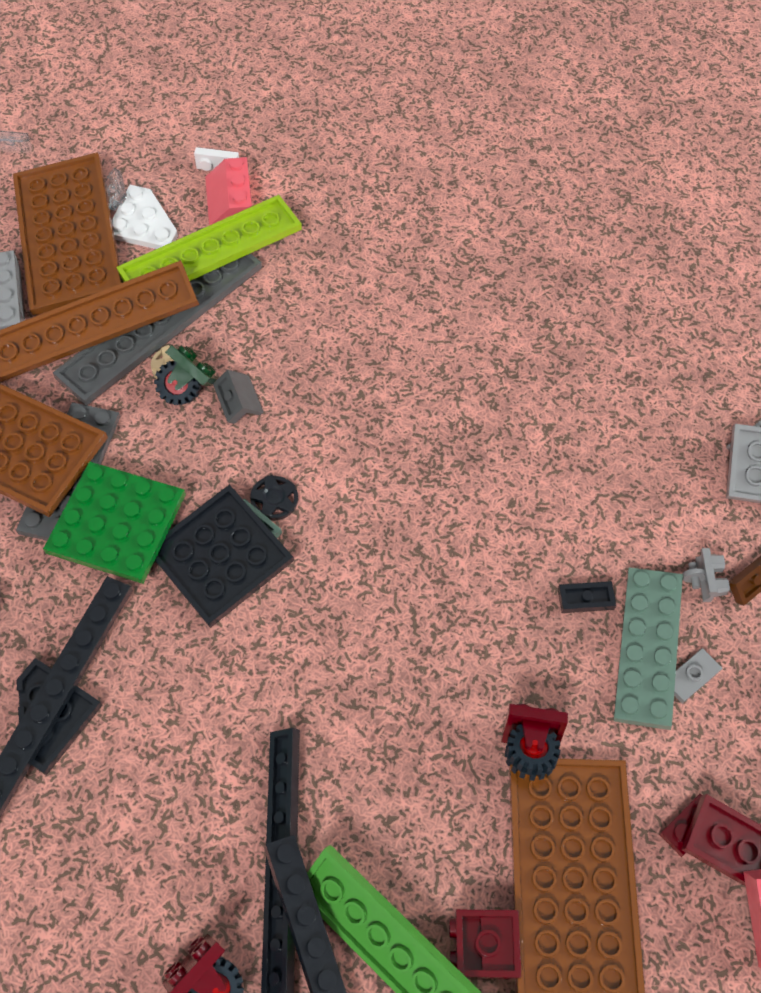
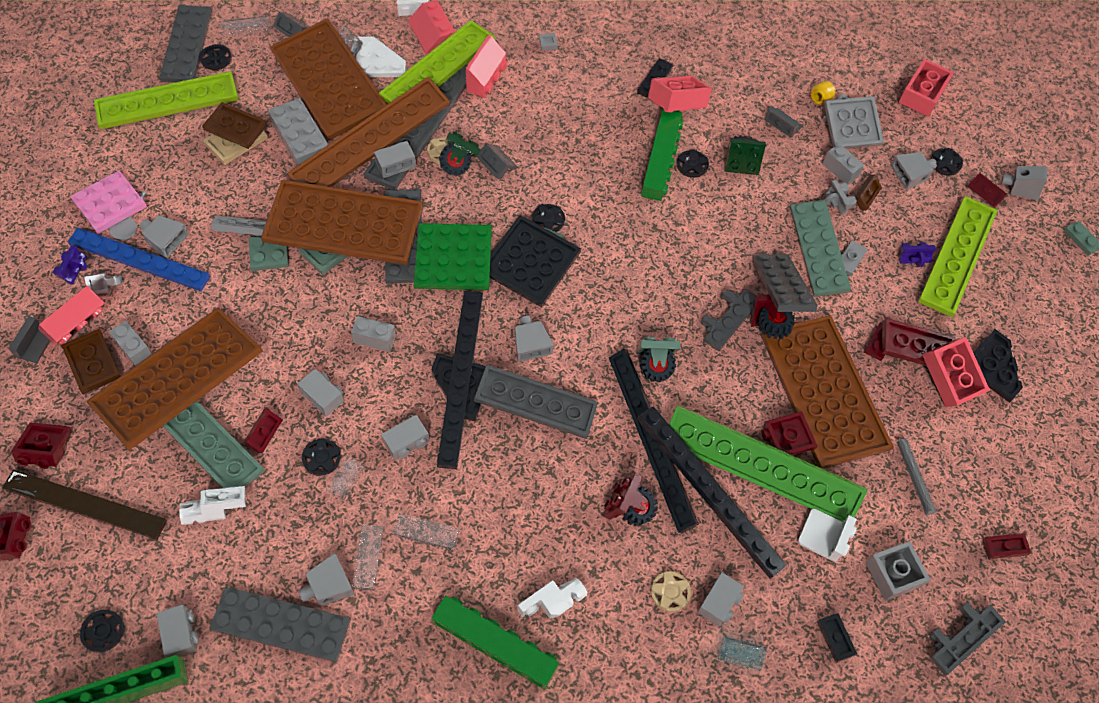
camera: 20 degrees left, 0 degrees up
(52, 149) = (288, 24): none -> dark grey panel
(96, 363) = (395, 159): none -> light grey brick
(137, 773) = (536, 401): none -> dark grey plate
(171, 674) = (532, 340): none -> light grey torso
(272, 263) = (485, 67): none -> slope
(335, 760) = (657, 360): none -> plate
(375, 246) = (548, 42): none -> light grey plate
(454, 736) = (722, 329): none -> dark grey hinge
(467, 445) = (661, 156): none -> green brick
(503, 331) = (660, 70): none -> black plate
(509, 467) = (692, 161): none -> black wheel
(523, 362) = (679, 93): none -> coral brick
(562, 697) = (784, 283): none -> dark grey plate
(585, 475) = (744, 155): none -> dark green plate
(586, 597) = (771, 228): black plate -> none
(664, 437) = (782, 121): none -> dark grey panel
(730, 526) = (843, 164): none -> light grey brick
(738, 409) = (822, 92): none -> yellow head

